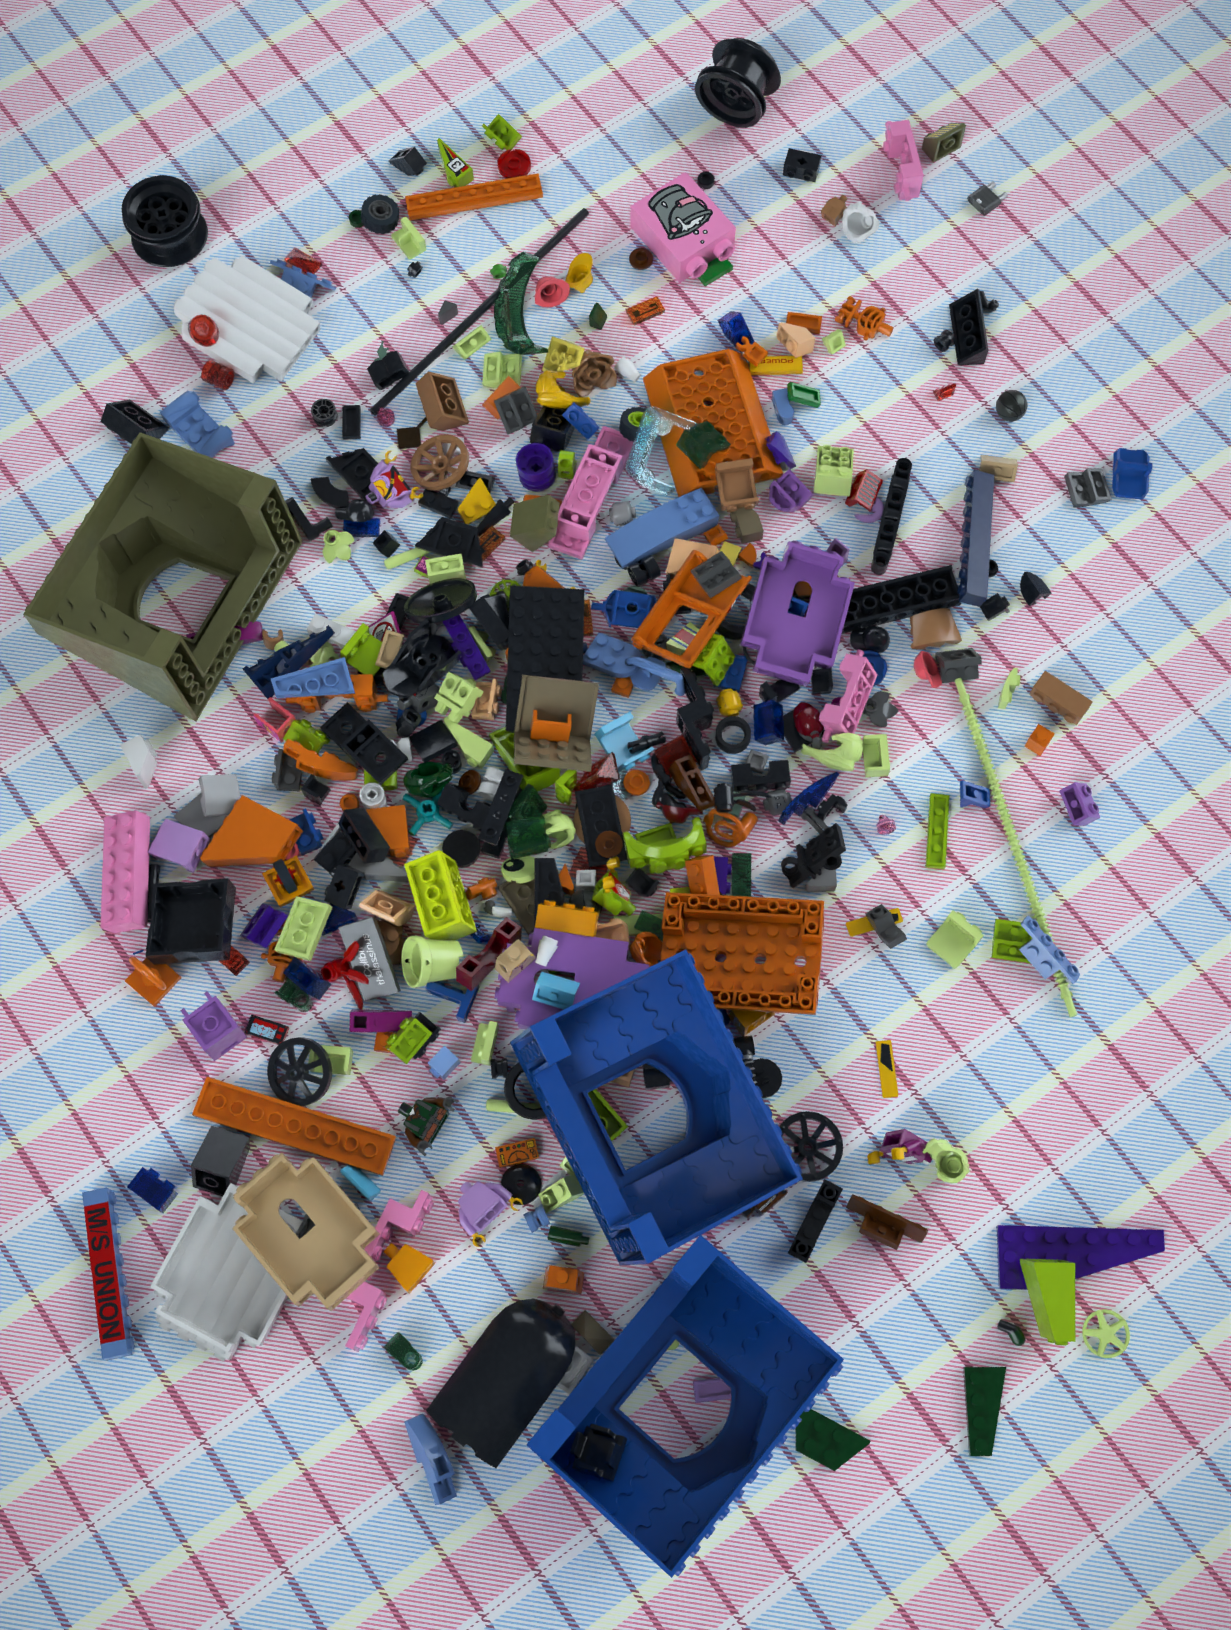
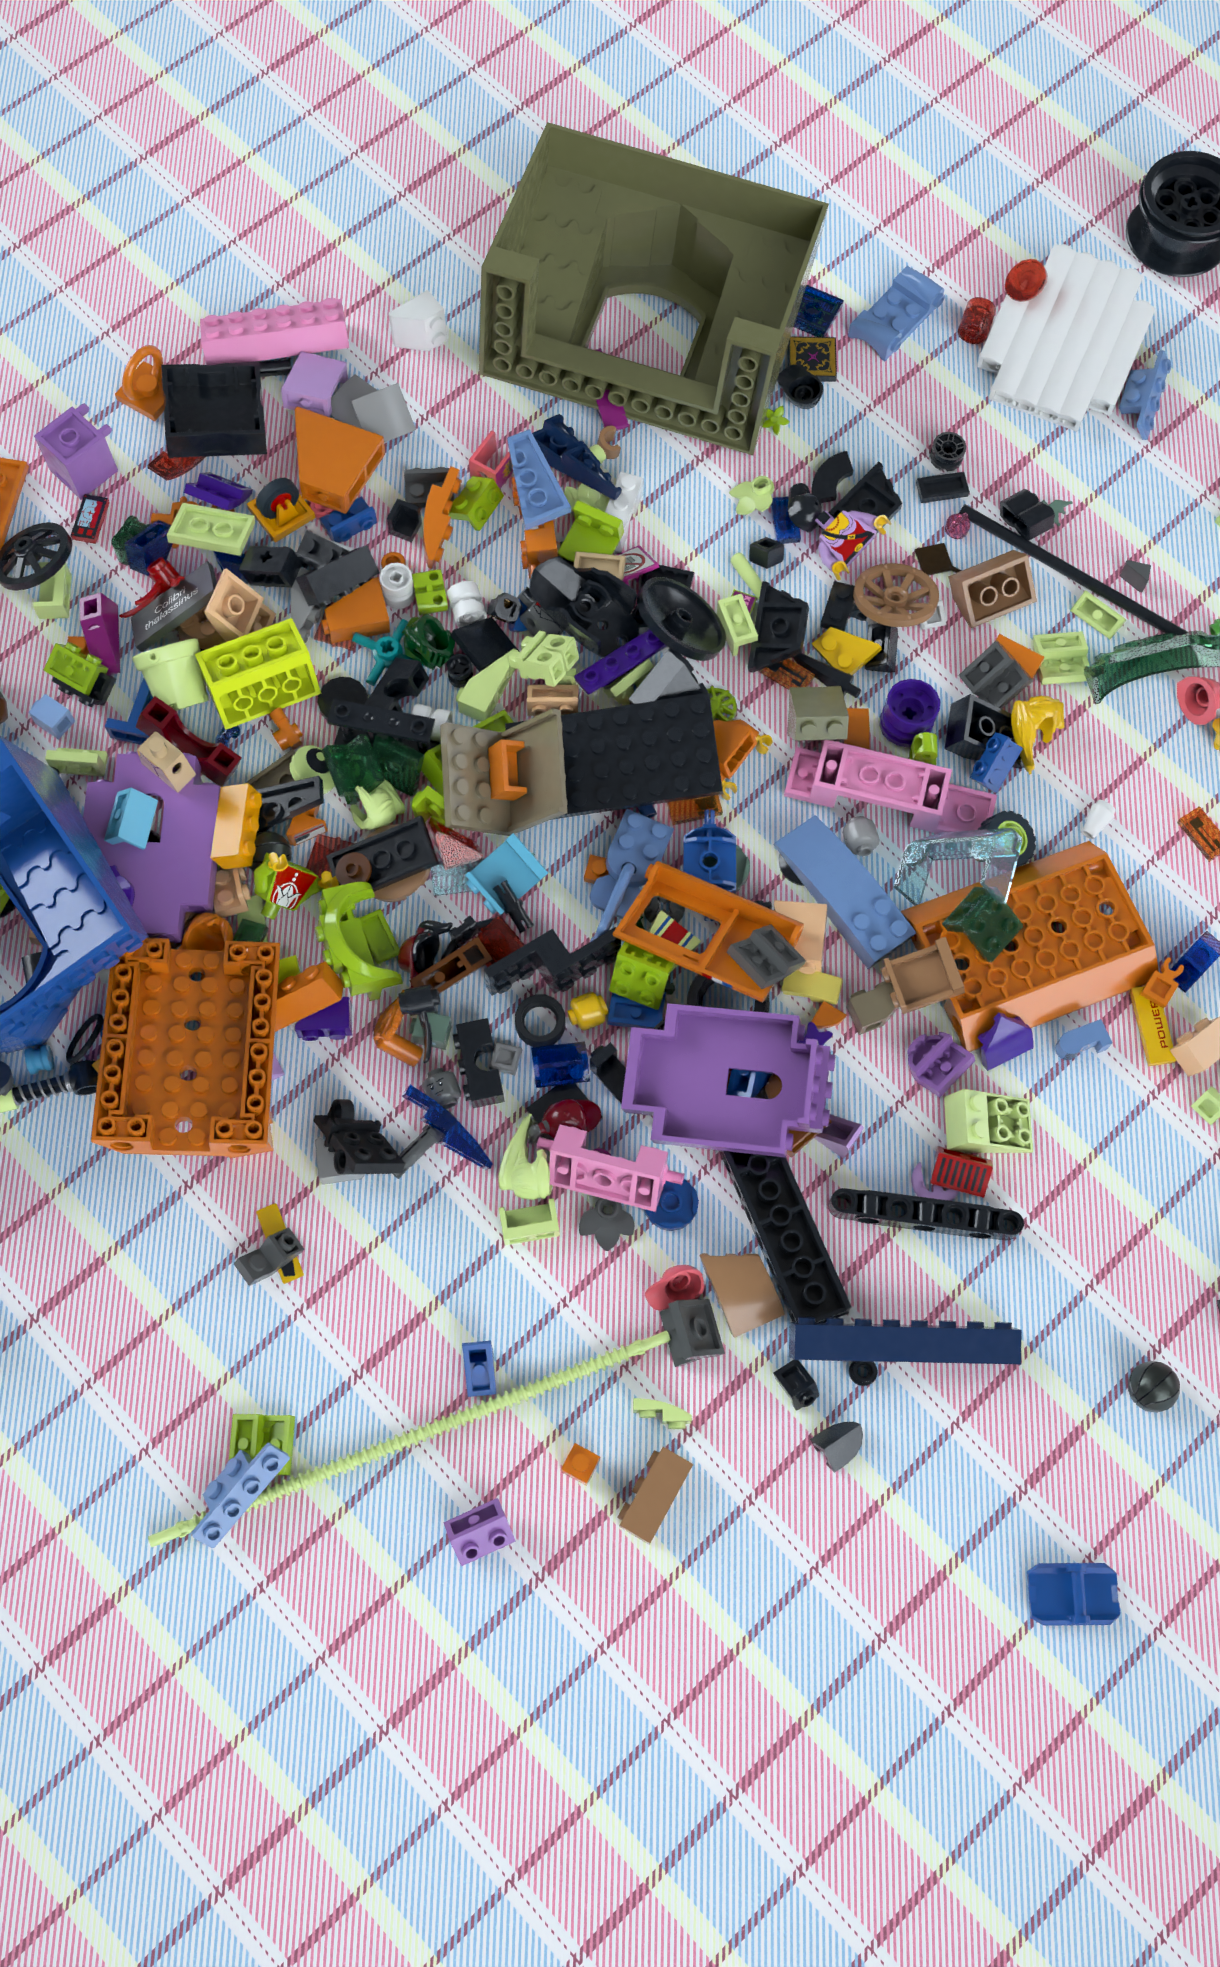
camera: 80 degrees right, 0 degrees up
(130, 419) = (887, 243): black slope -> none
(303, 261) = (1177, 395): clear red slope -> none
(311, 531) = (796, 437): black beam -> none
(364, 743) = (467, 561): black bracket -> none
(414, 269) = (1196, 526): black plate -> none
(470, 781) = (434, 696): reddish brown piece -> none
(497, 911) = (257, 752): white arm -> none
(523, 567) = (758, 722): black plate -> none
(546, 949) = (185, 799): white cone -> none
(562, 355) = (1096, 724): light yellow wedge -> none
(585, 879) = (308, 853): white slope -> none
(593, 371) = (1077, 764): medium nougat brick -> none
(597, 317) = (1176, 769): dark green slope -> none
(636, 782) = (456, 902): orange piece -> none
(642, 883) = (304, 927): black bracket -> none
(644, 570) = (783, 876): black wheel -> none
(715, 535) = (848, 965): orange plate -> none
(741, 874) = (324, 1055): clear green tile -> none
(767, 1076) = (48, 1115): black piece -> none
(804, 394) = (1106, 1067): green tile -> none
(821, 681) = (636, 1134): black panel -> none
(827, 806) = (442, 1158): black bracket -> none
(866, 640) = (714, 1189): black cap -> none
(885, 825) = (420, 1244): clear pink tile -> none
(886, 1069) = (66, 1276): yellow sticker -> none
(937, 831) = (423, 1322): lime tile -> none
(944, 391) = (1161, 1281): clear red slope -> none
(955, 939) = (253, 1355): yellowish green bracket -> none
(1002, 468) = (1041, 1374): tan panel -> none
(1087, 487) = (1034, 1524): dark grey slope -> none

